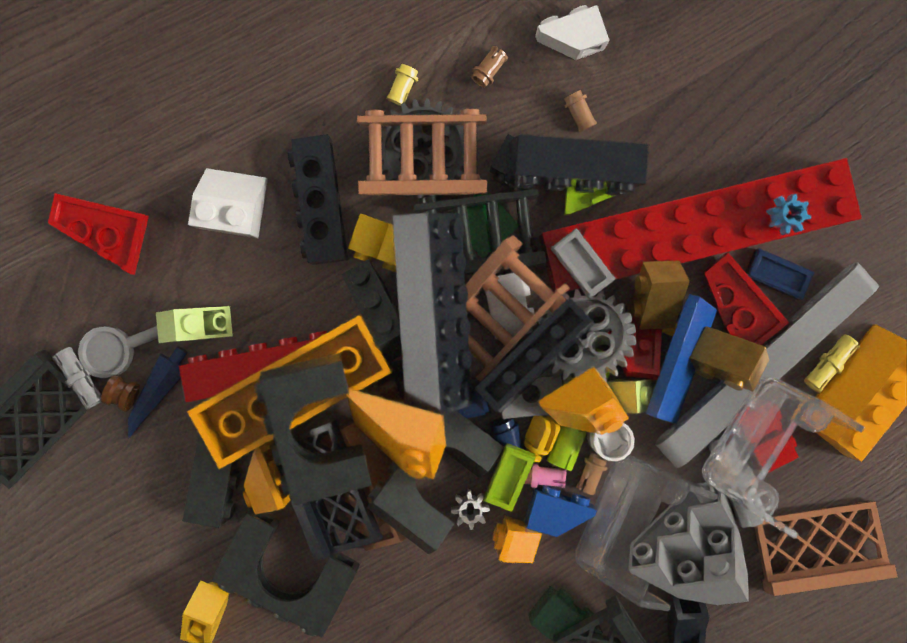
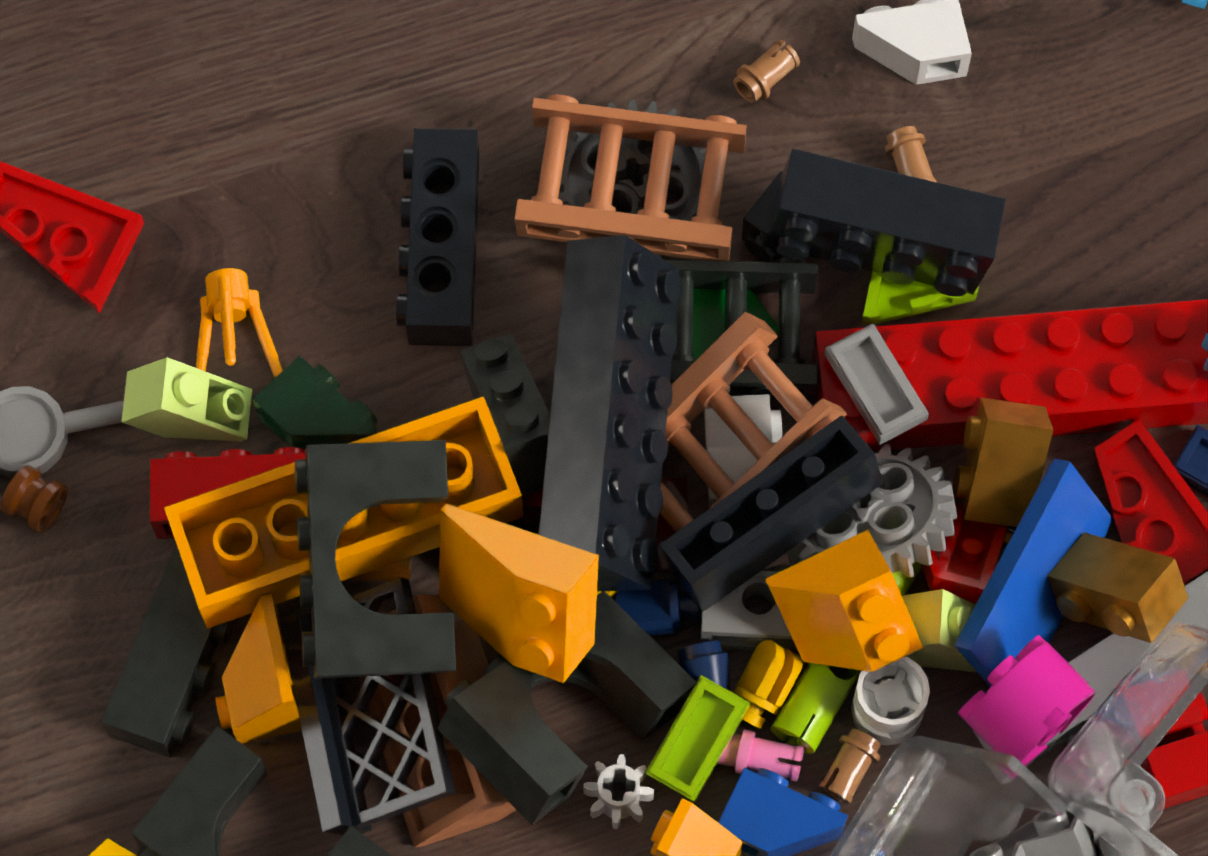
camera: 10 degrees right, 20 degrees down
(160, 382) = (105, 495): dark blue bar -> none
(203, 258) = (228, 300): none -> light orange plant
(228, 203) = (285, 224): white slope -> none
(263, 318) = (309, 410): none -> clear green slope
(374, 240) = (529, 310): yellow brick -> none
(402, 85) = (621, 69): light yellow pin -> none
(693, 445) = (1028, 701): none -> dark pink brick

